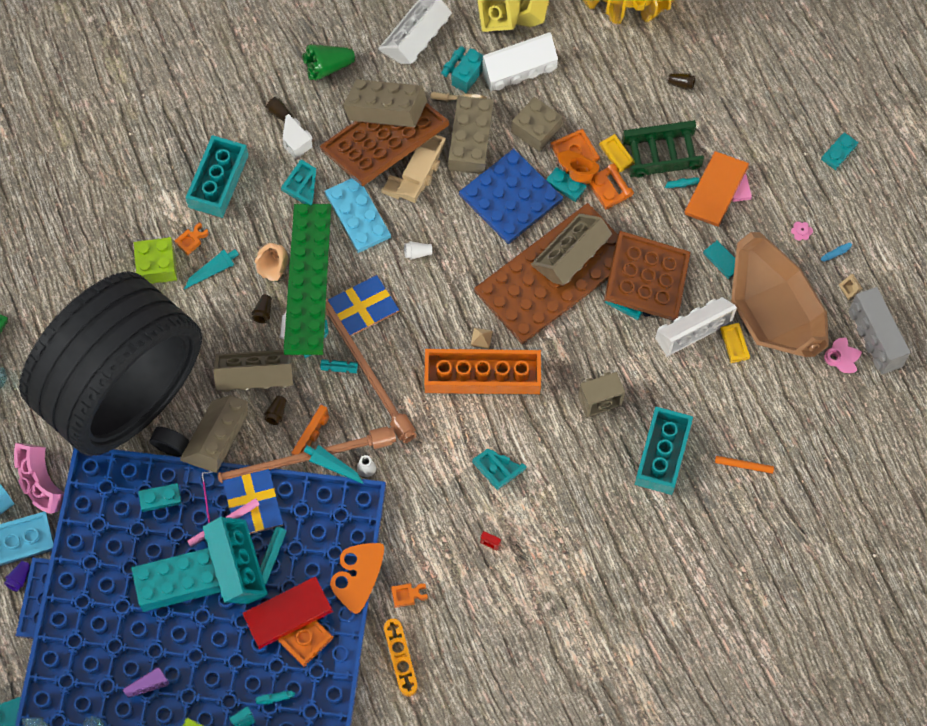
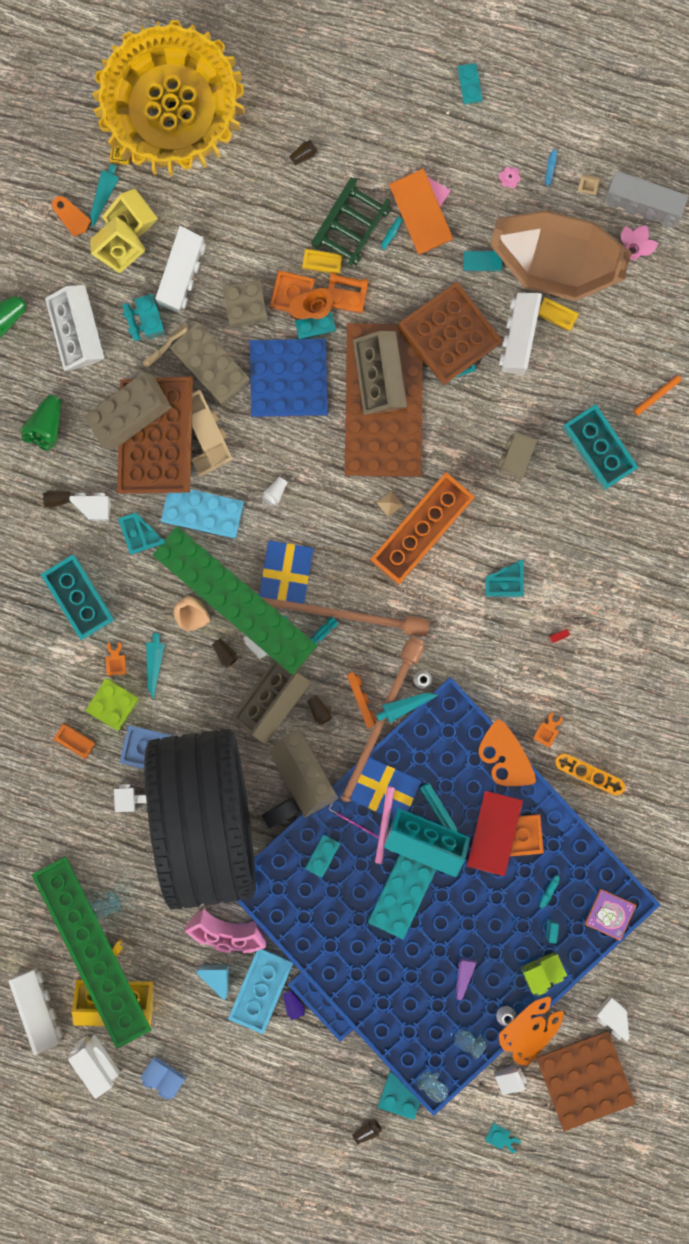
camera: 50 degrees left, 20 degrees up
(104, 258) = (74, 741): none -> orange tile

